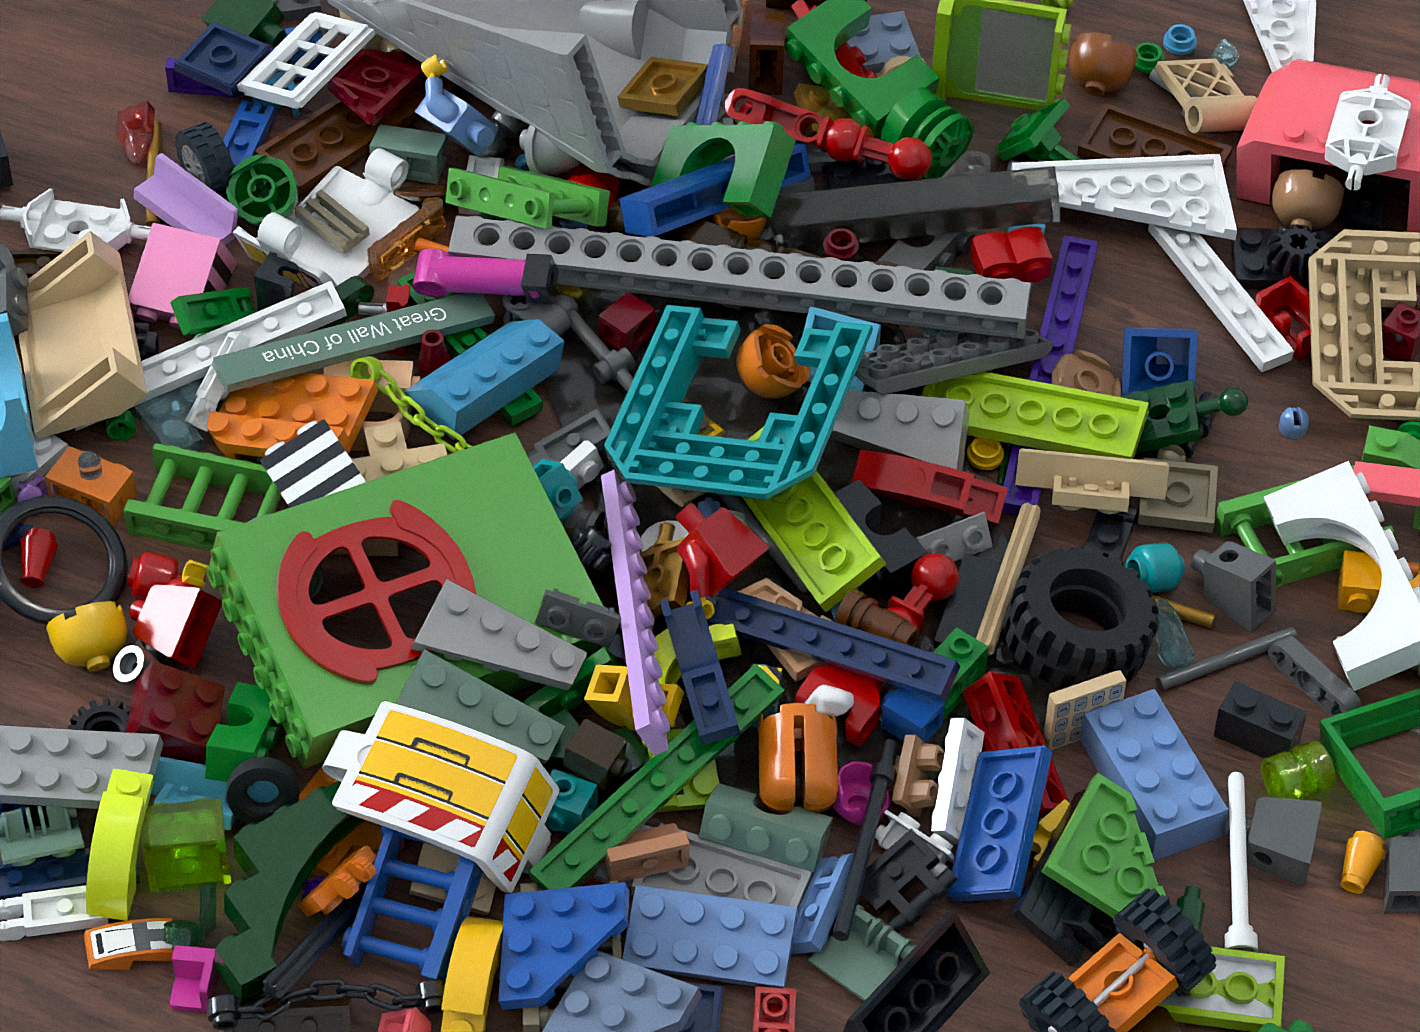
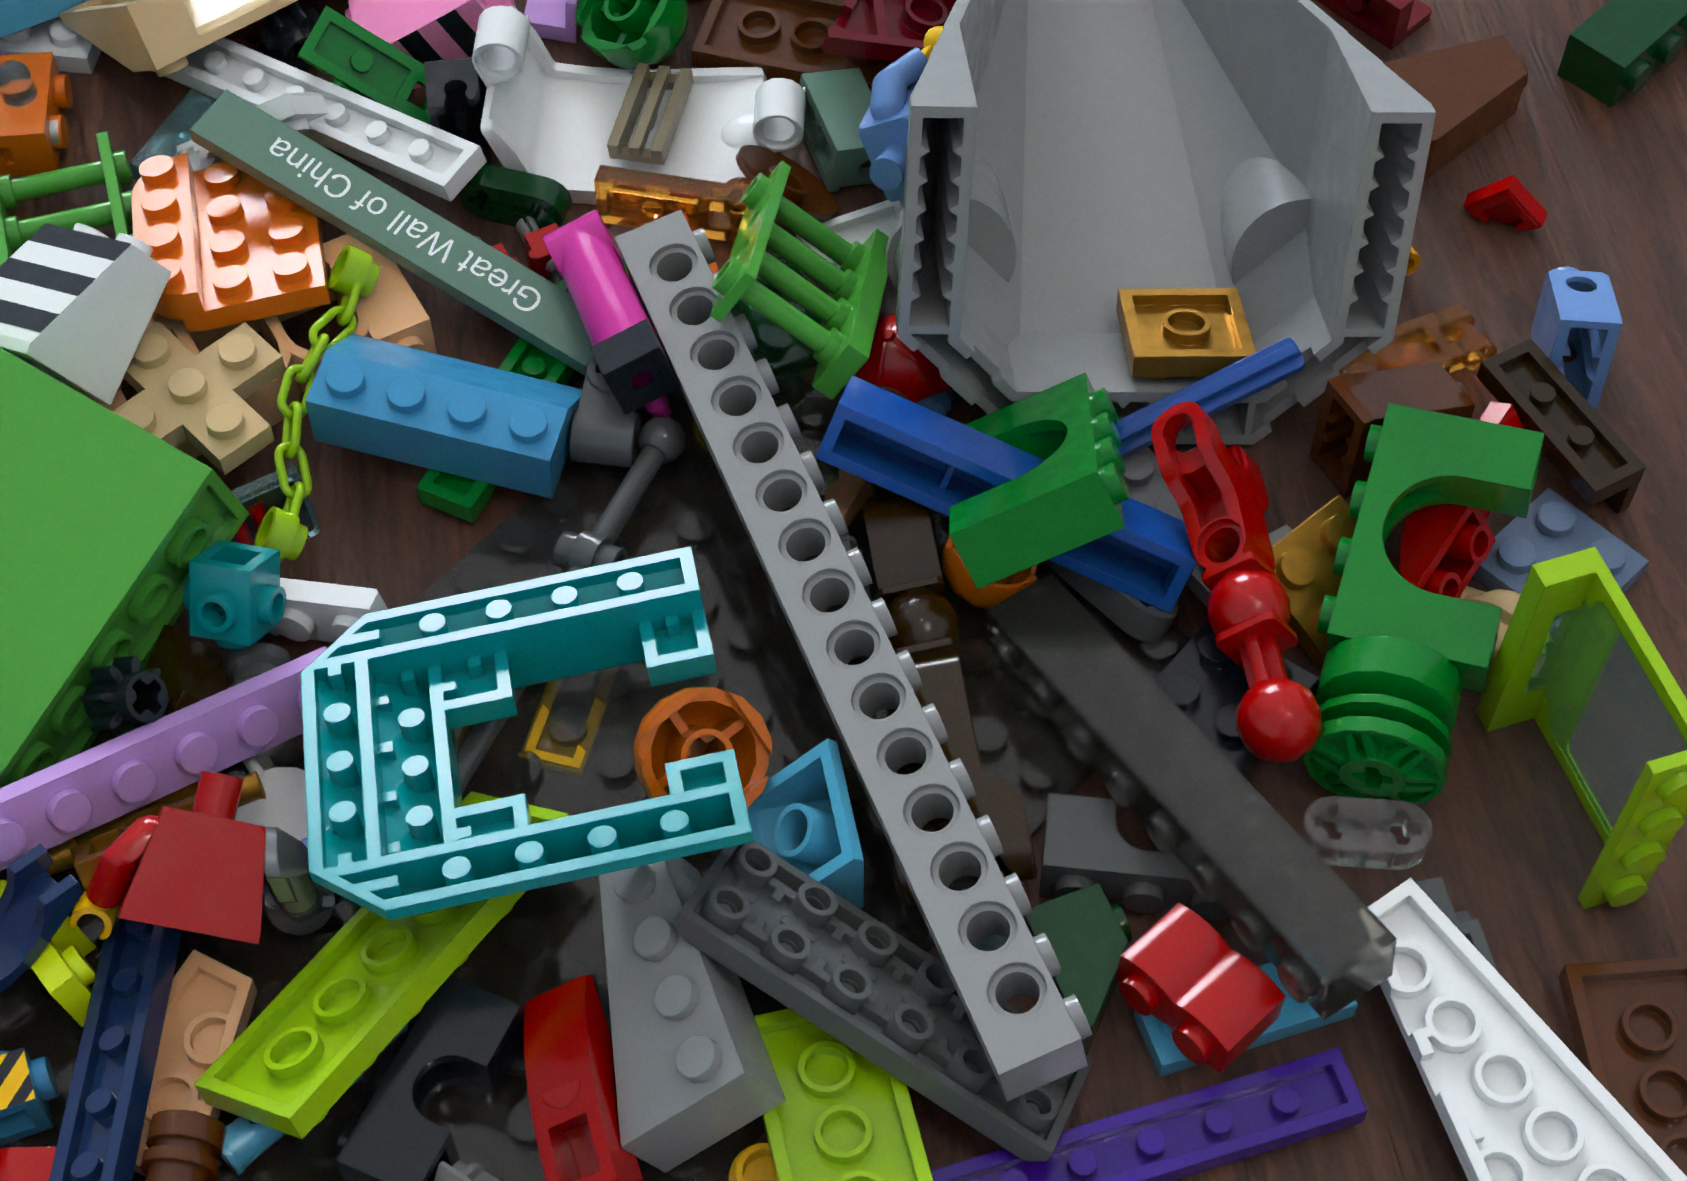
camera: 60 degrees right, 5 degrees up
(119, 432) = (153, 92): green hinge -> none
(432, 353) = (473, 335): dark red cone -> none
(564, 441) = (394, 573): dark grey hinge -> none
(627, 323) = (680, 518): dark red brick -> none
(841, 245) = (1013, 727): dark red cone -> none
(1036, 135) = (1521, 888): green piece -> none

